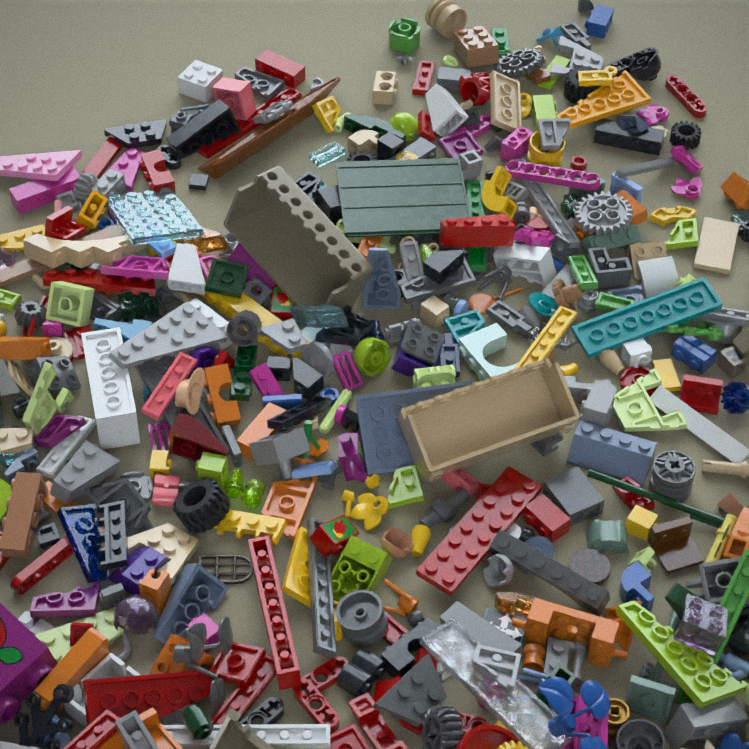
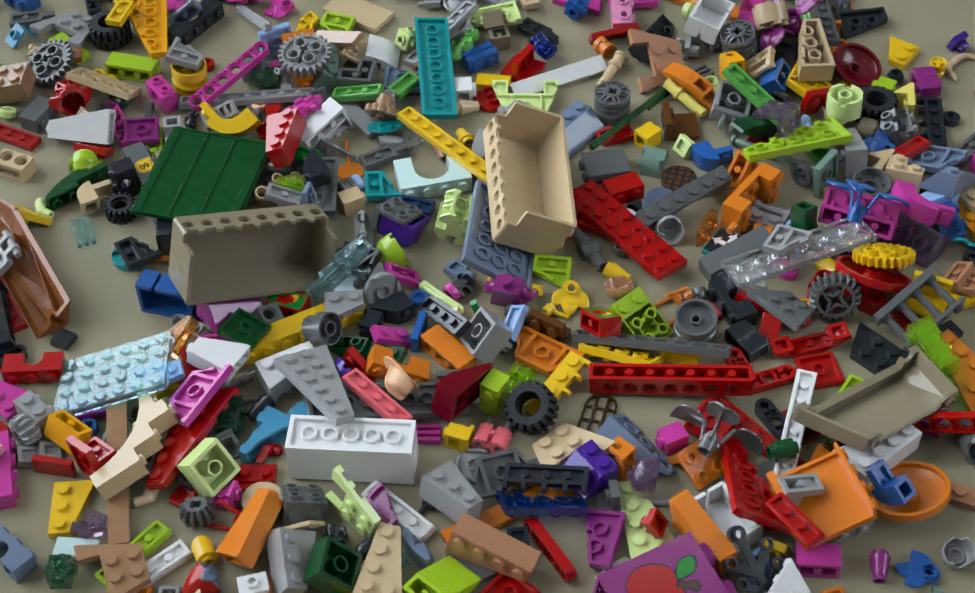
camera: 70 degrees left, 0 degrees up
(321, 500) = (548, 325): none -> reddish brown bracket
(652, 235) = (342, 38): none -> tile

